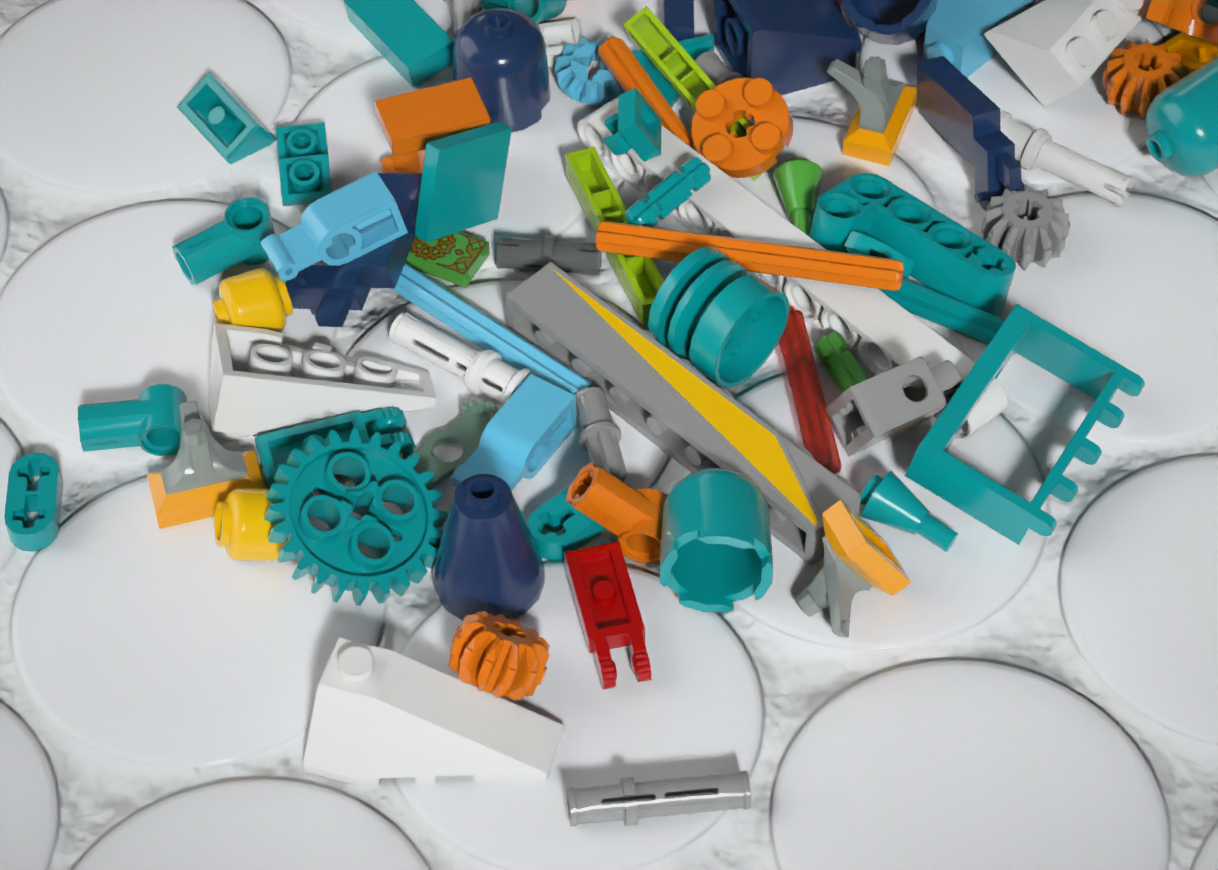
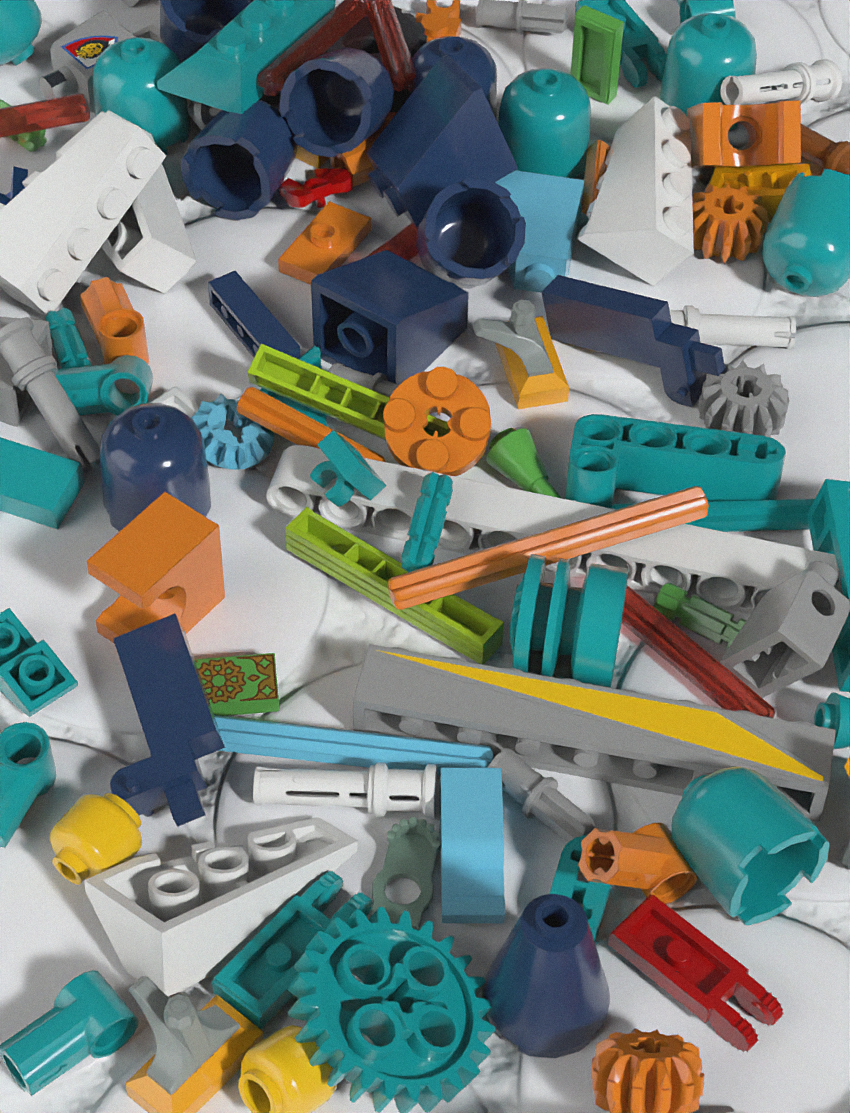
camera: 35 degrees left, 0 degrees up
(337, 228) = (139, 715): medium azure piece -> none
(462, 181) = (223, 603): teal tile -> none
(537, 253) = (341, 638): dark grey pin -> none
(864, 245) = (640, 489): teal tile -> none

